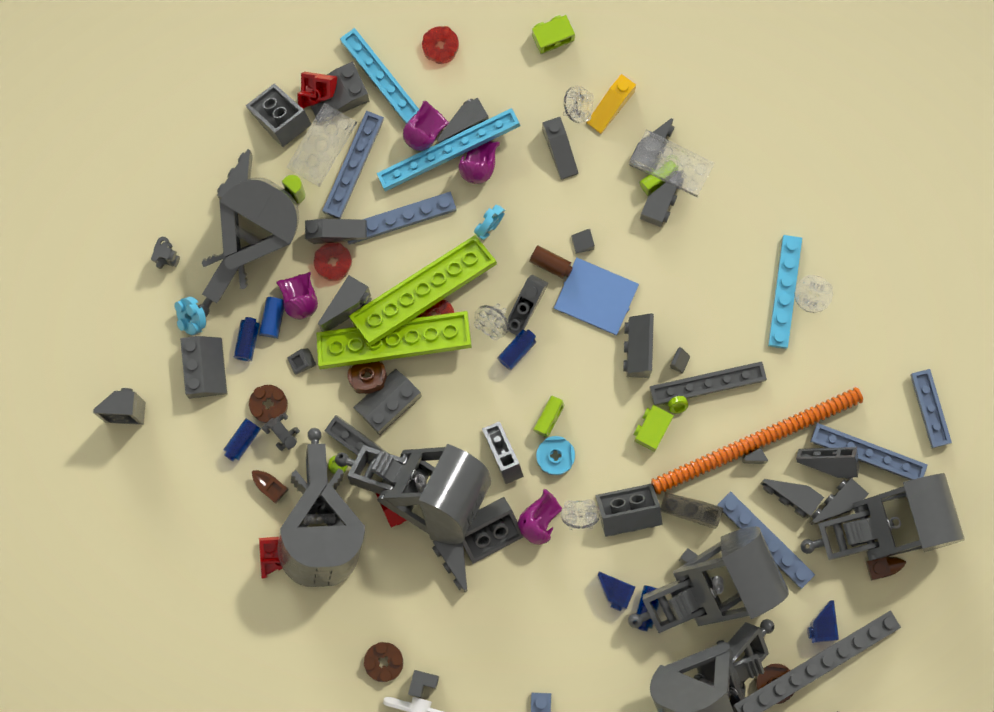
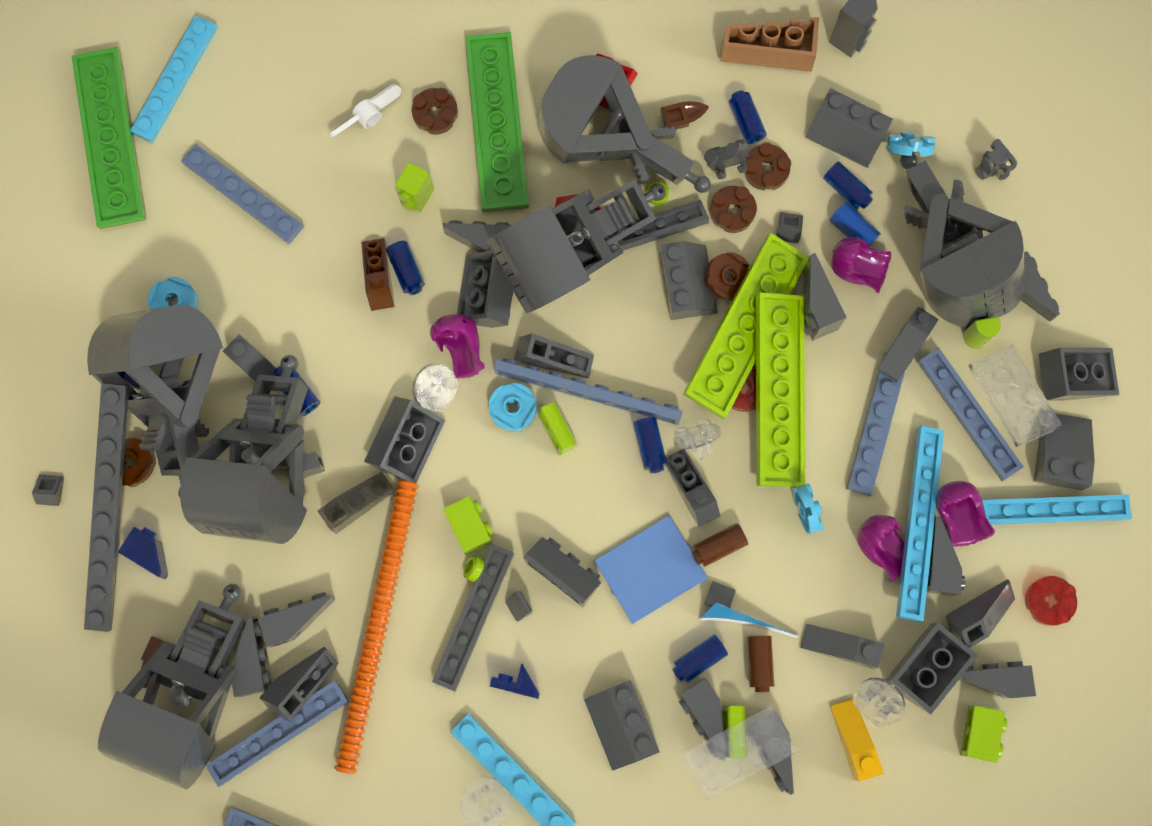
camera: 125 degrees right, 0 degrees up
(175, 456) = (772, 45): none -> medium nougat wedge
(315, 88) = (1083, 429): red slope -> none
(323, 256) = (883, 335): clear red plate -> none
(325, 405) = (726, 219): none -> reddish brown plate
(361, 611) = (496, 122): none -> bright green plate
(420, 680) = (389, 129): dark grey piece -> none
(454, 628) = (414, 187): none -> lime brick
(484, 79) = (981, 615): none -> dark grey slope
(510, 38) = (1007, 682): none -> dark grey slope
(512, 421) = (578, 388): none -> sand blue plate
(512, 595) = (405, 267): none -> clear blue brick
(529, 613) = (377, 274): none -> reddish brown slope
(536, 87) = (932, 667): none -> dark grey slope
(592, 230) = (722, 613): none -> dark azure sticker
(606, 189) = (760, 663): none -> reddish brown brick
(616, 591) = (335, 370): clear blue slope -> none
(631, 227) = (699, 659): none -> clear blue brick
(650, 652) = (248, 358): none -> dark grey slope
(705, 246) = (621, 725): none -> dark grey slope
(728, 322) = (523, 686): none -> clear blue slope
(756, 457) = (361, 608): dark grey slope -> none
(783, 556) = (273, 557): sand blue plate -> none

